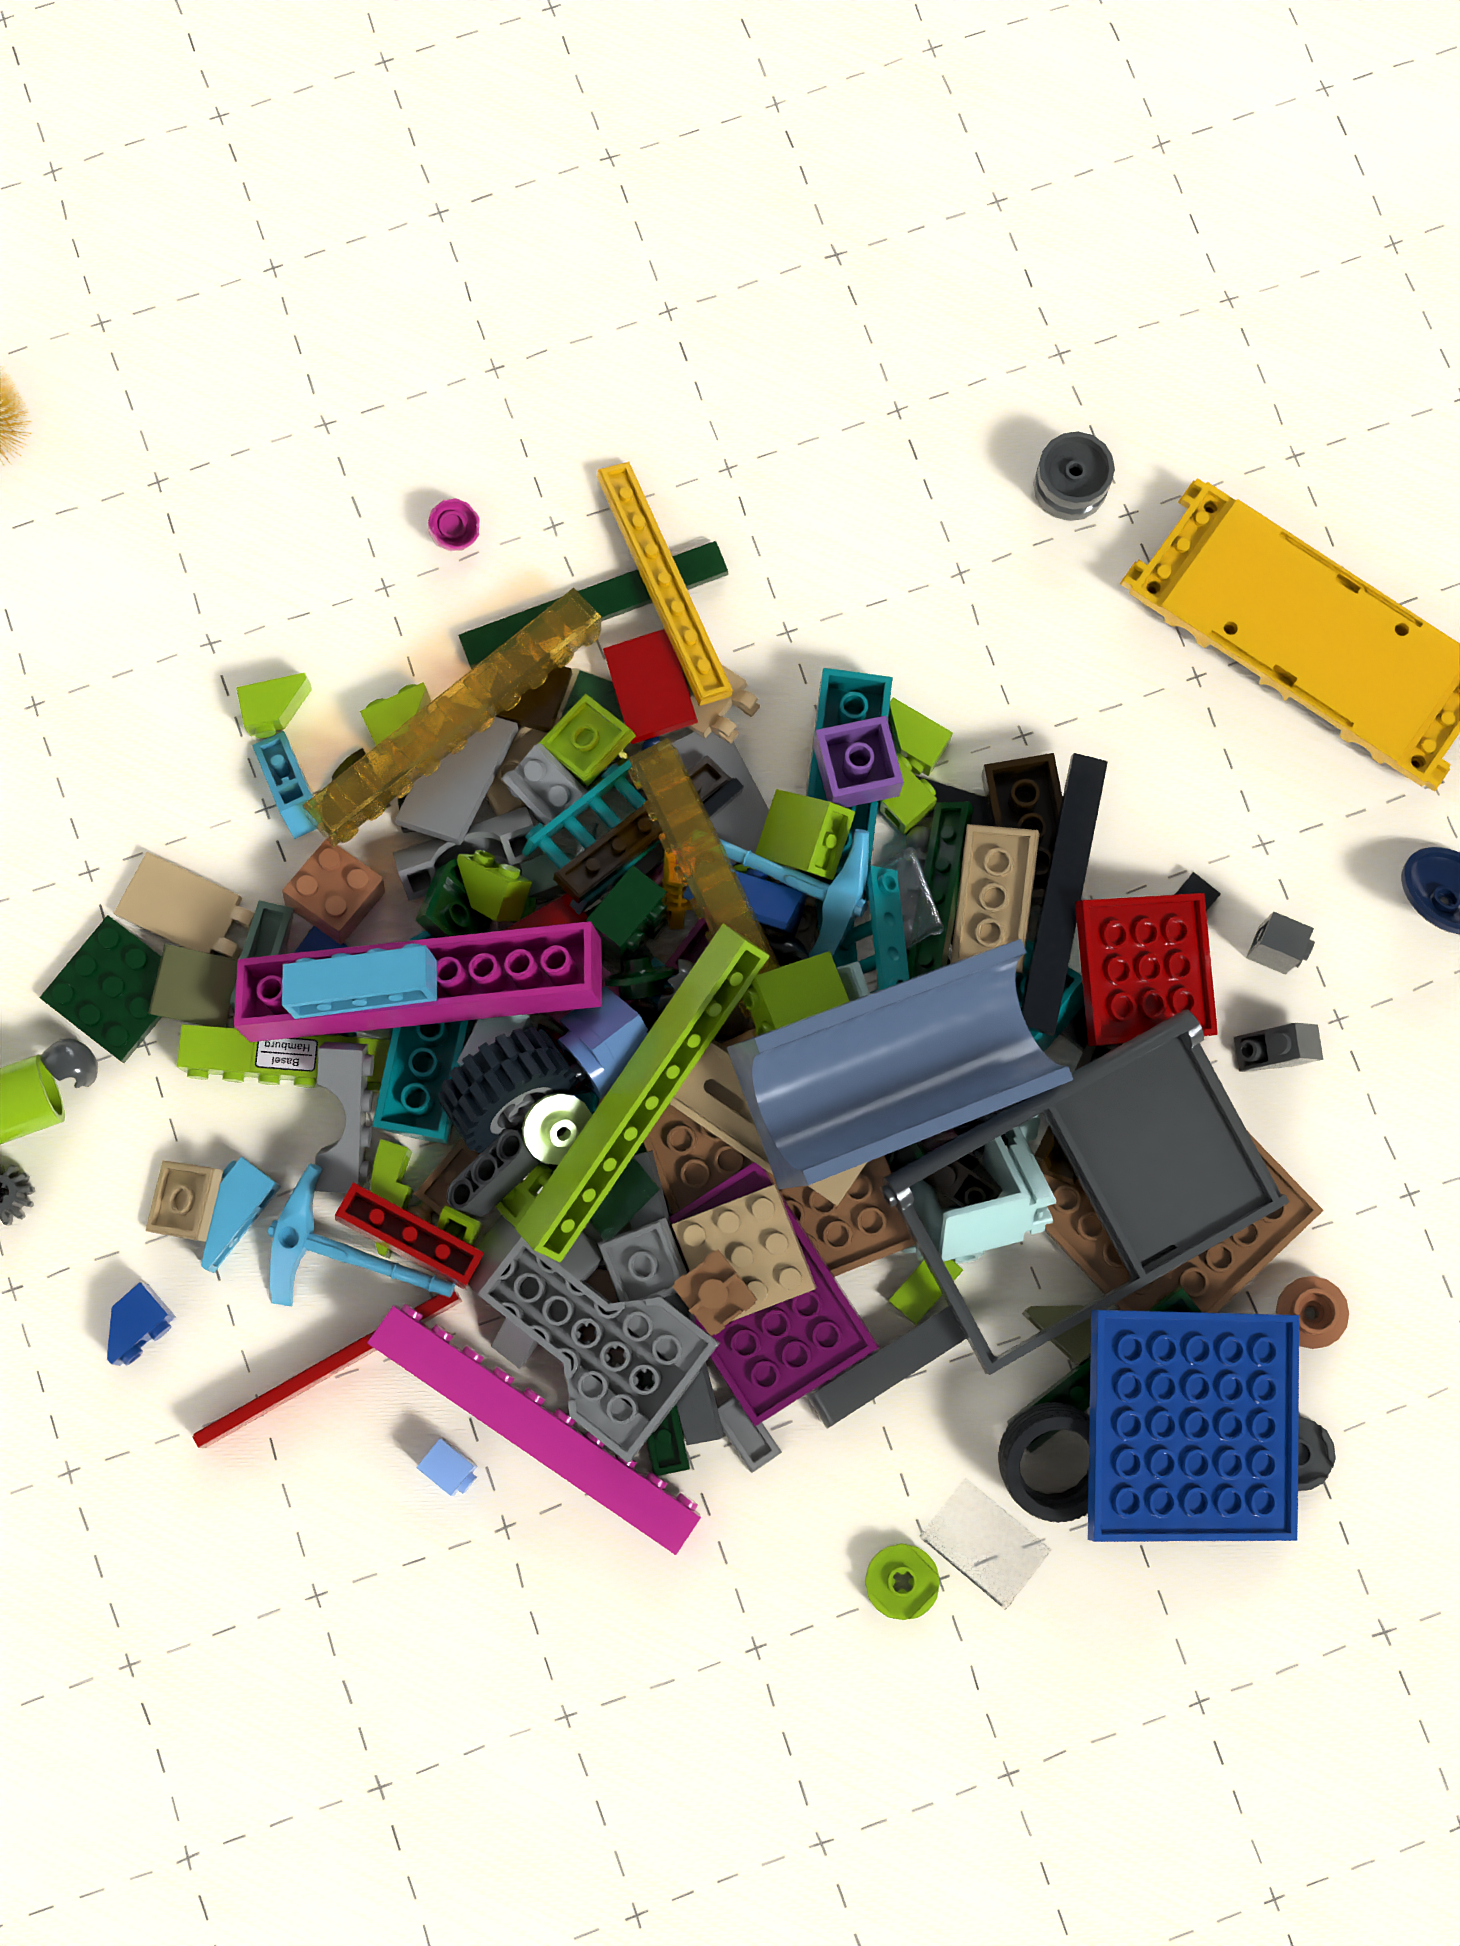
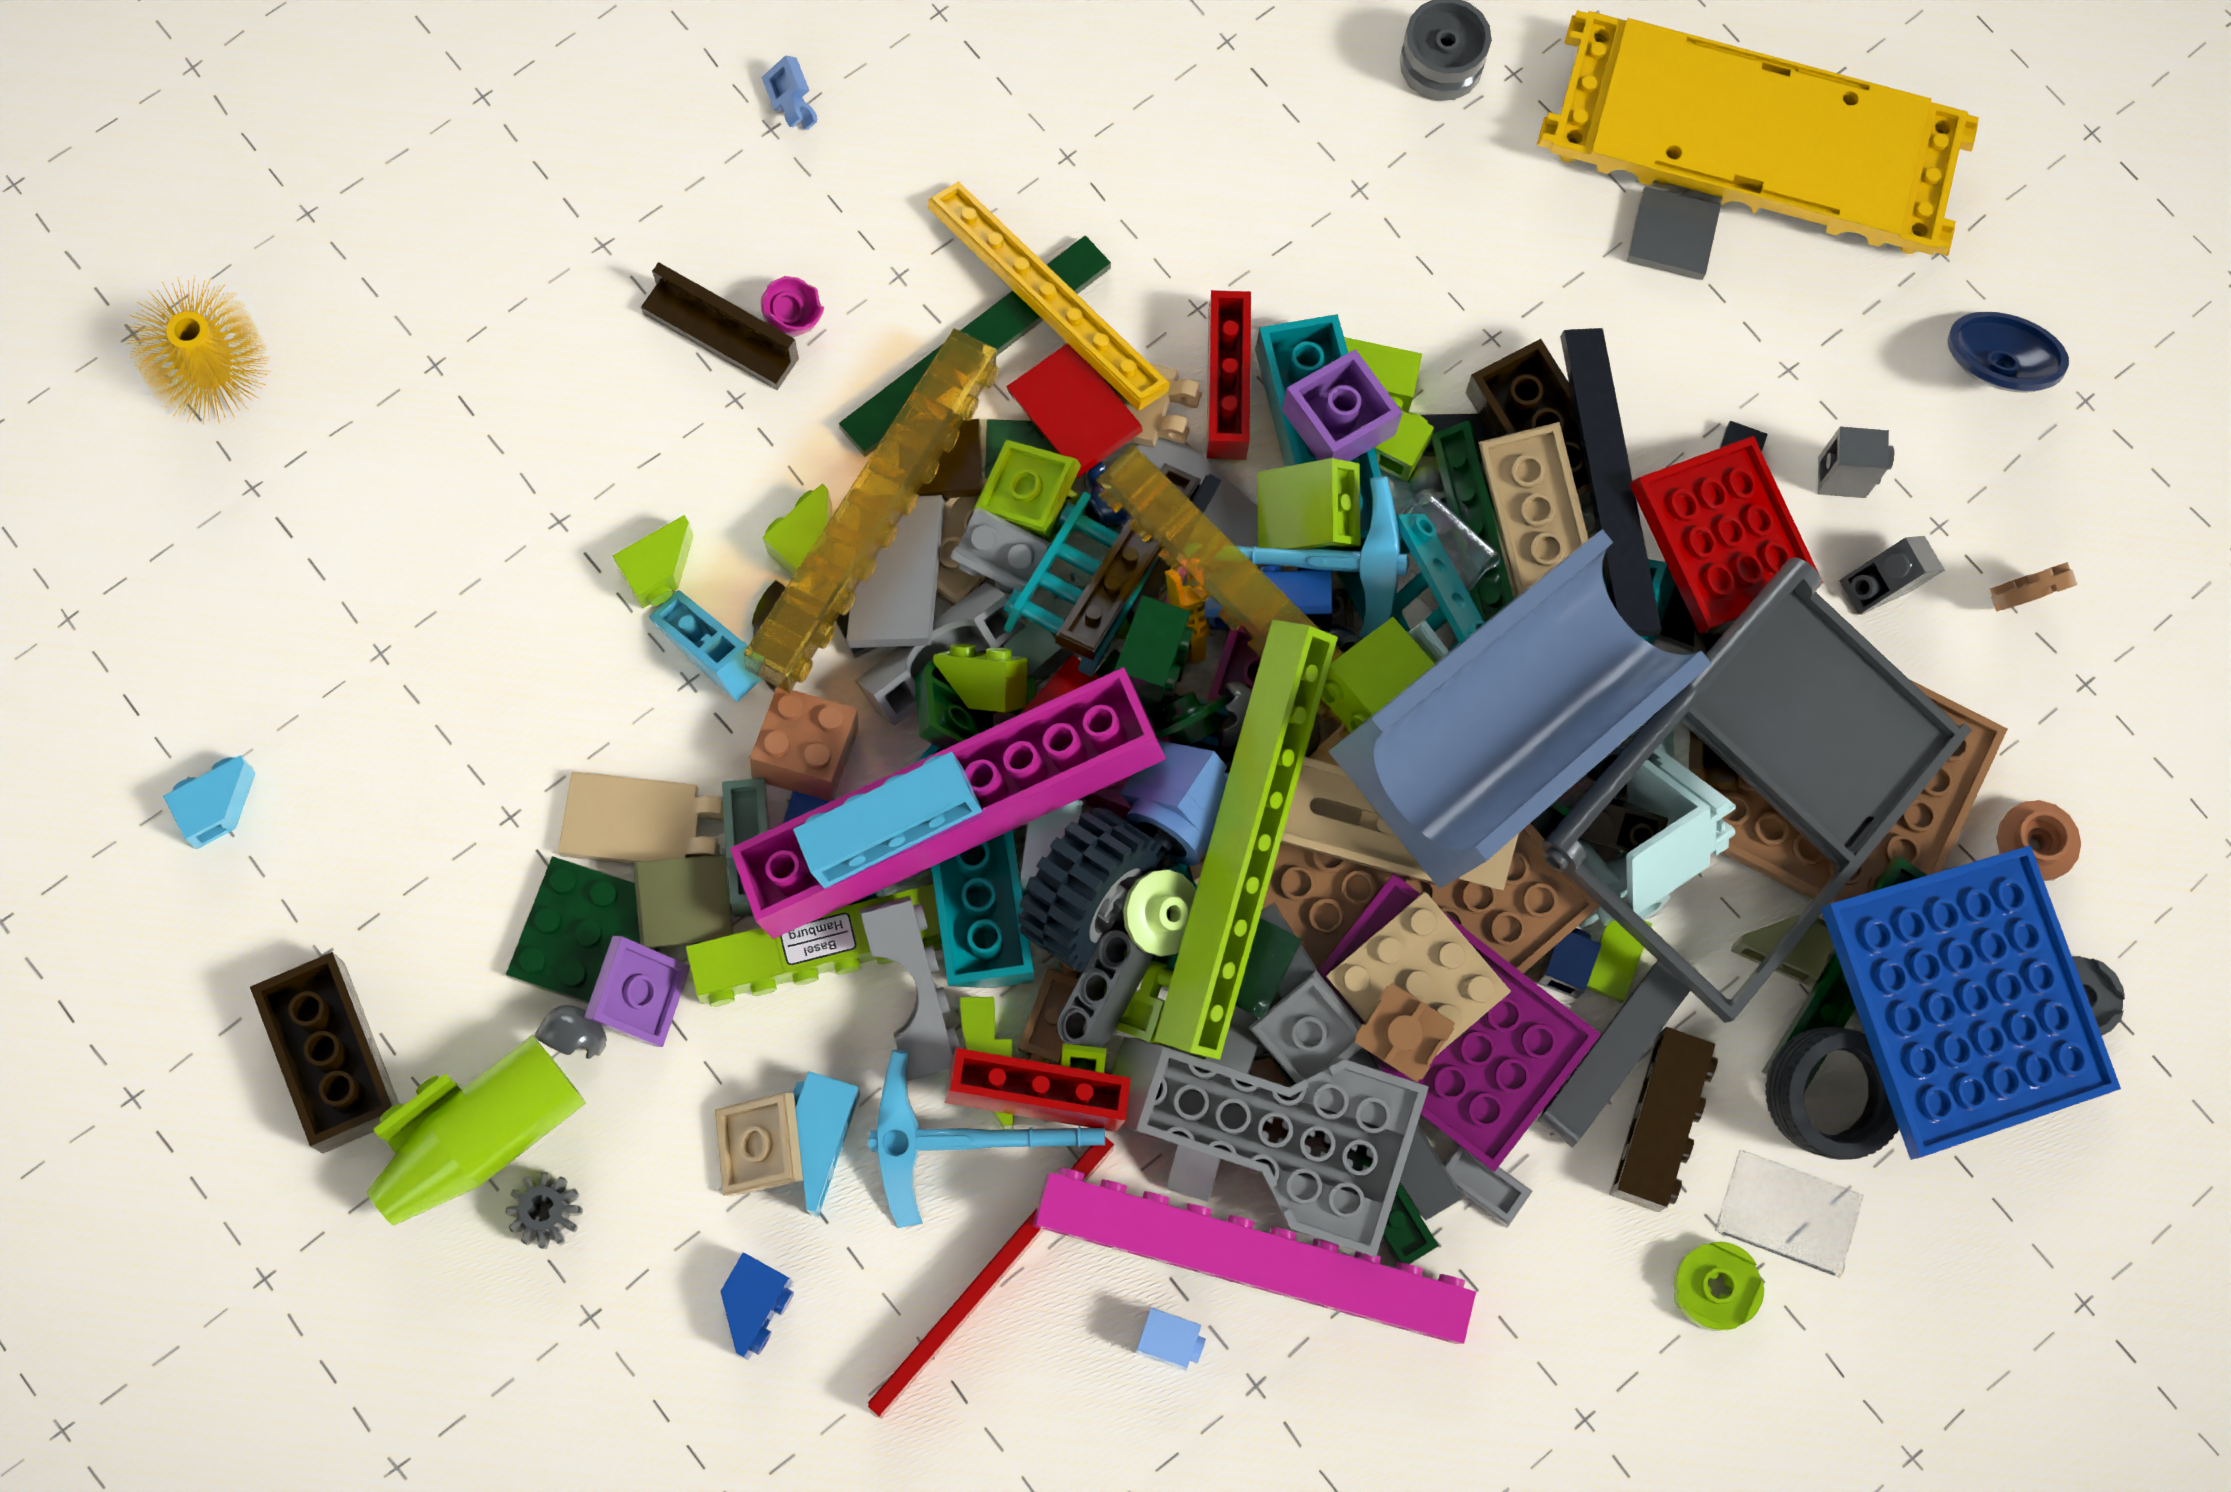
camera: 25 degrees left, 5 degrees down
(132, 1047) = (637, 991): none -> medium lavender plate
(391, 525) = (720, 327): none -> dark brown fence
(516, 339) = (785, 89): none -> medium blue plate
(786, 698) = (1228, 375): none -> red brick
(883, 1278) = (1570, 964): none -> dark blue brick
(909, 1432) = (1663, 1120): none -> dark brown brick
(1209, 695) = (1673, 233): none -> dark grey tile
(1389, 1098) = (2032, 586): none -> medium nougat plate

